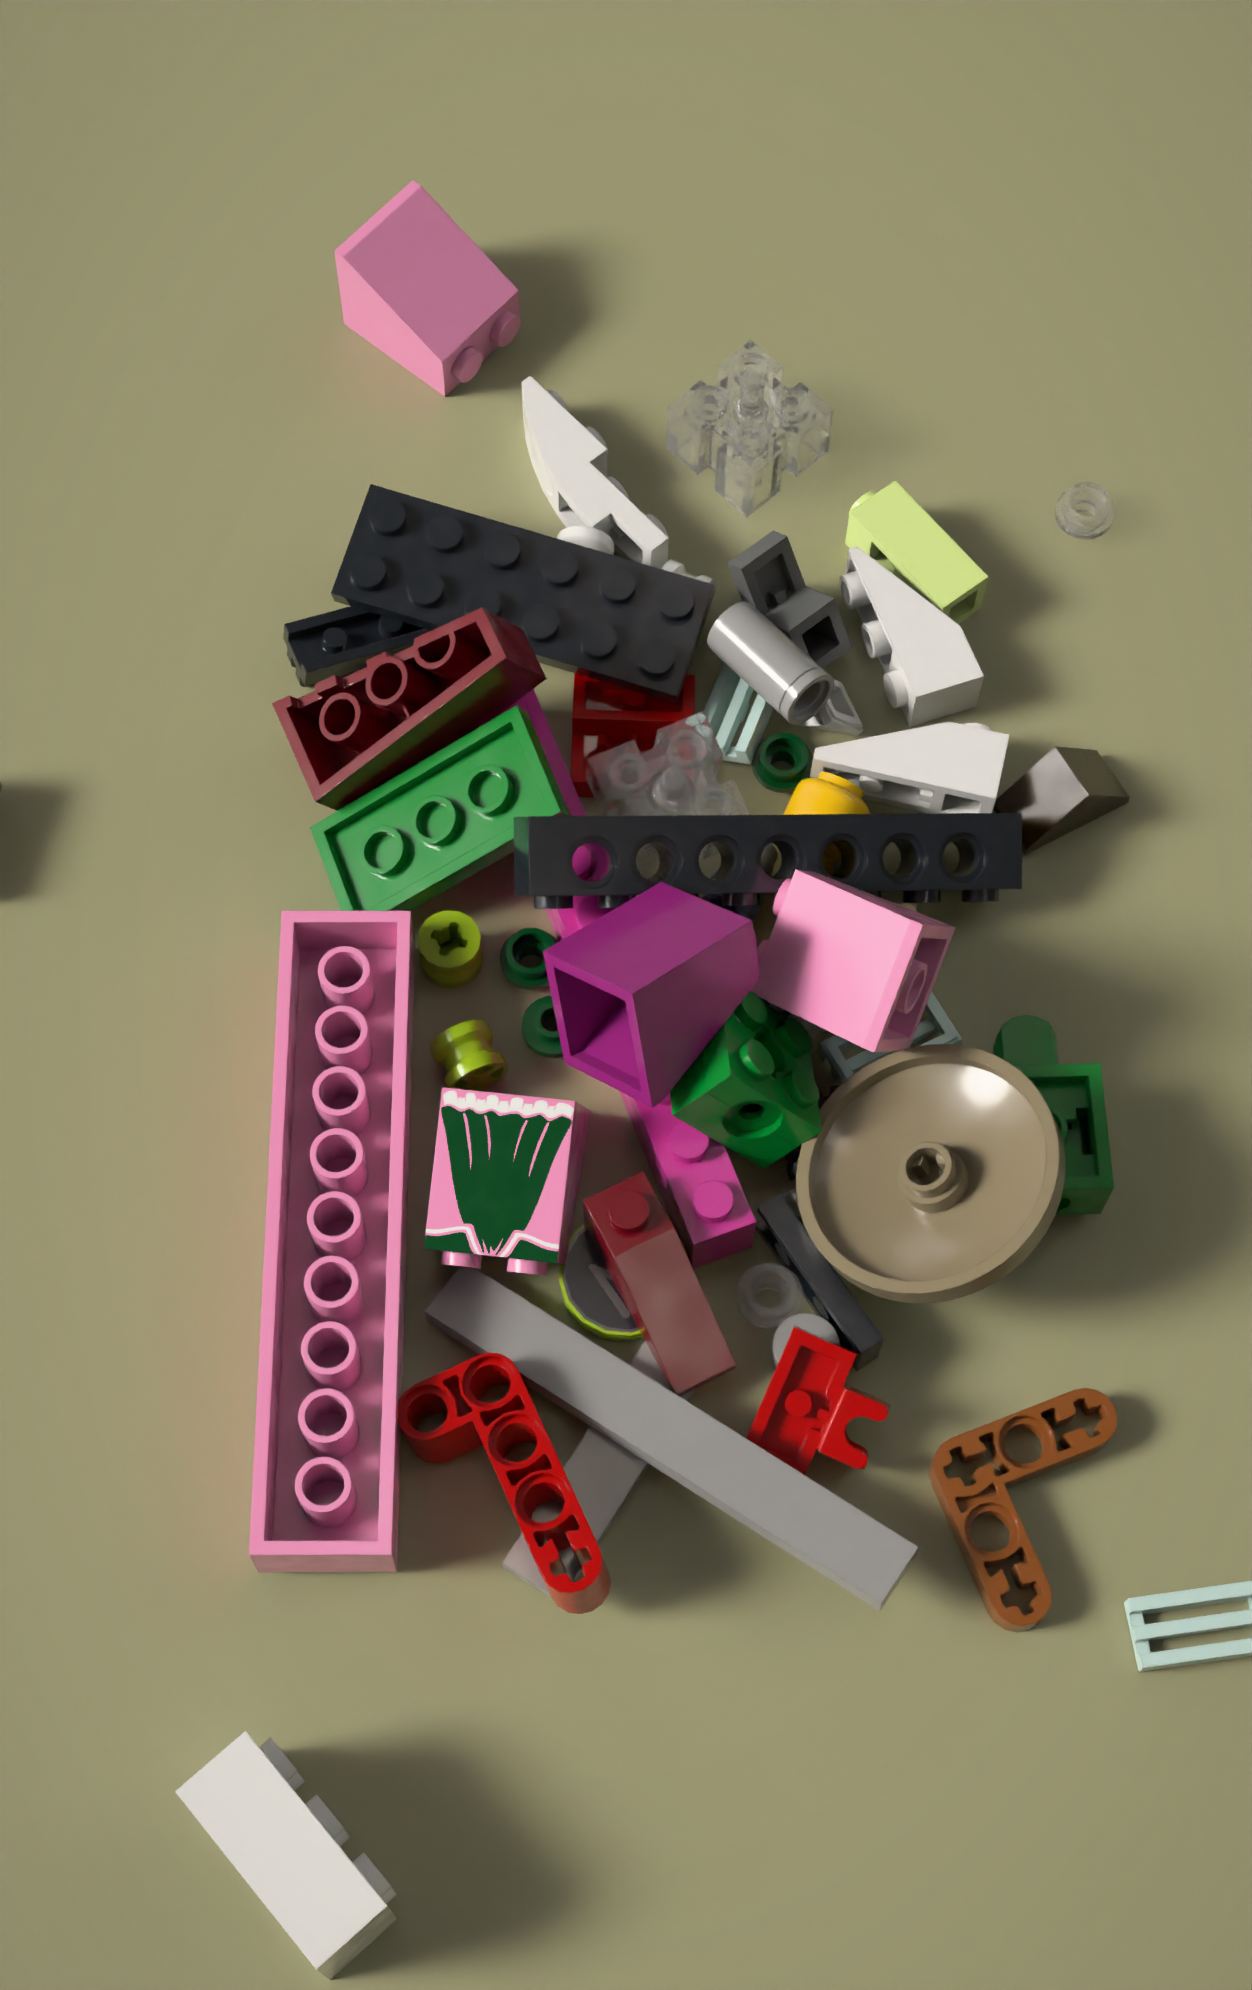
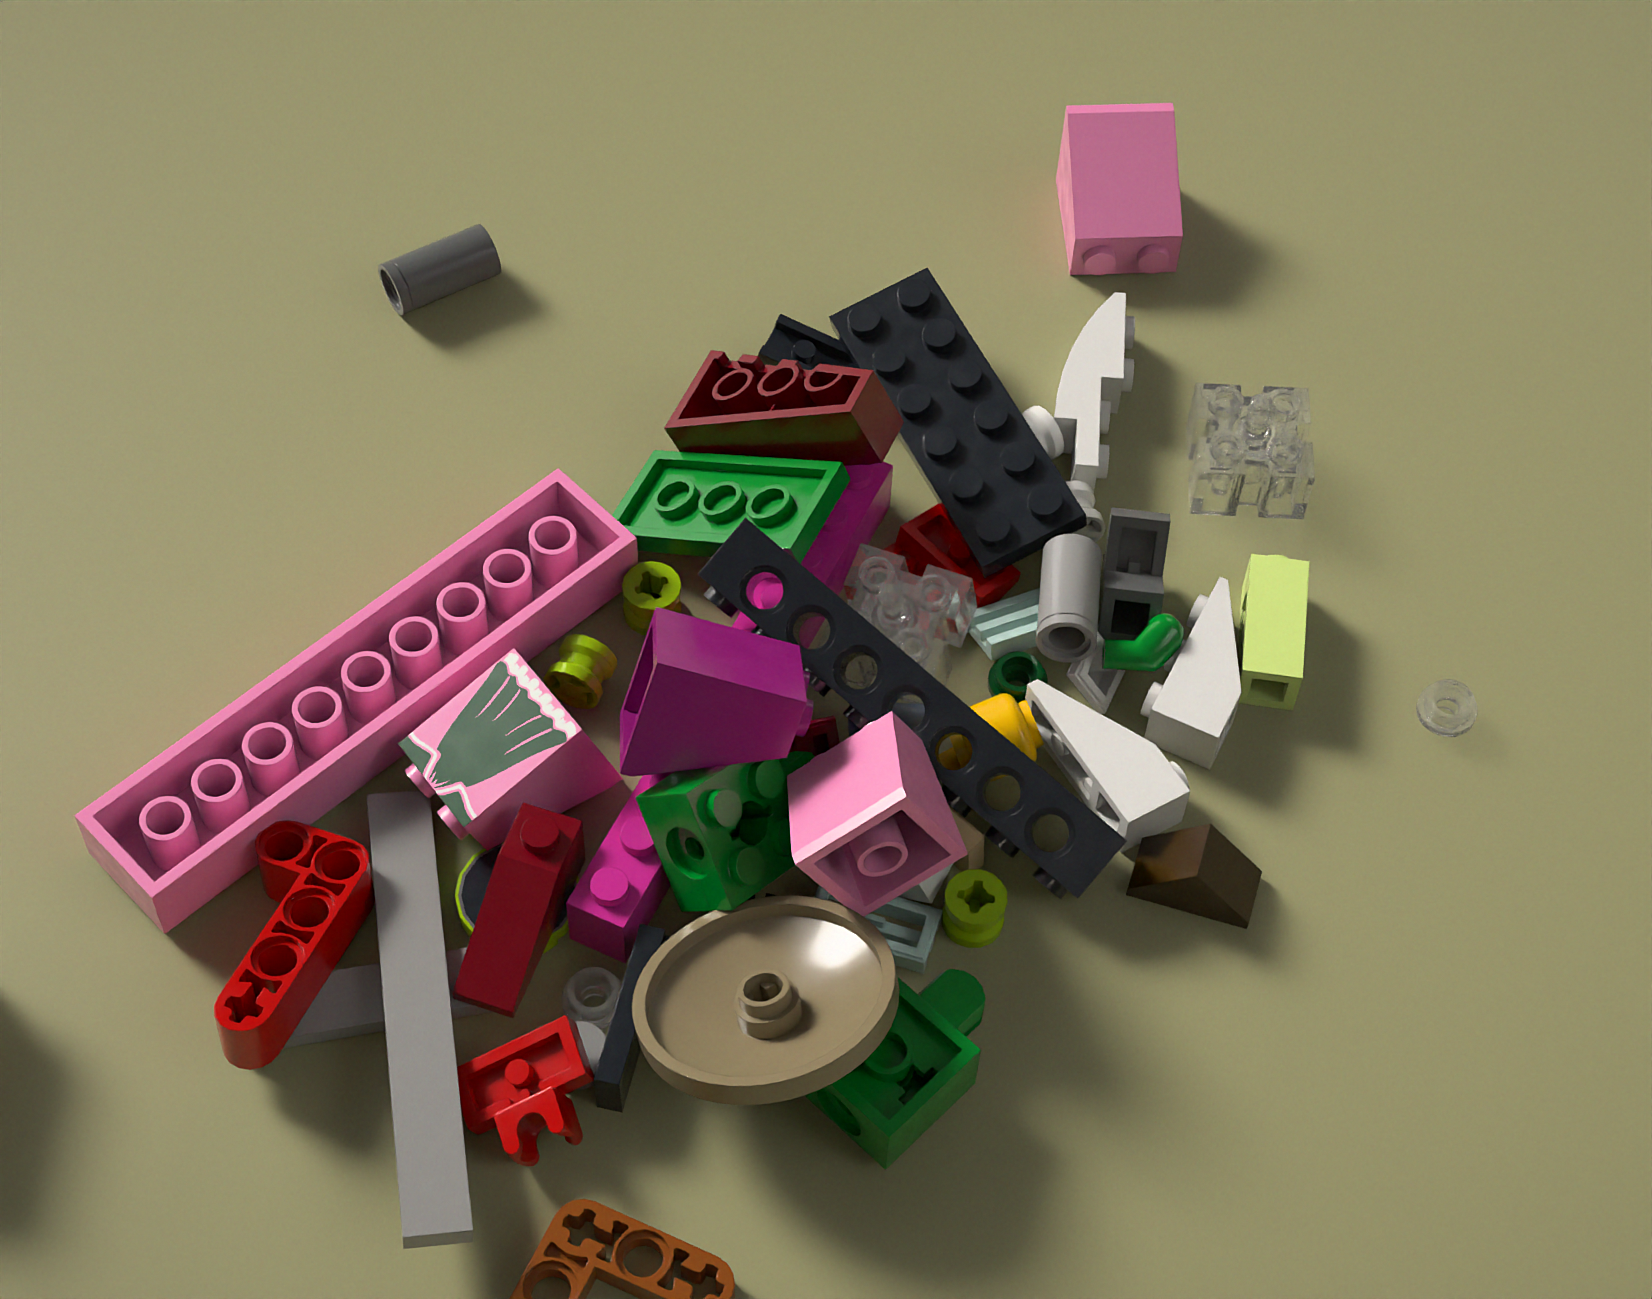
camera: 45 degrees right, 10 degrees down
(864, 650) = (1150, 648): none -> green arm
(959, 978) = (971, 924): none -> lime wheel

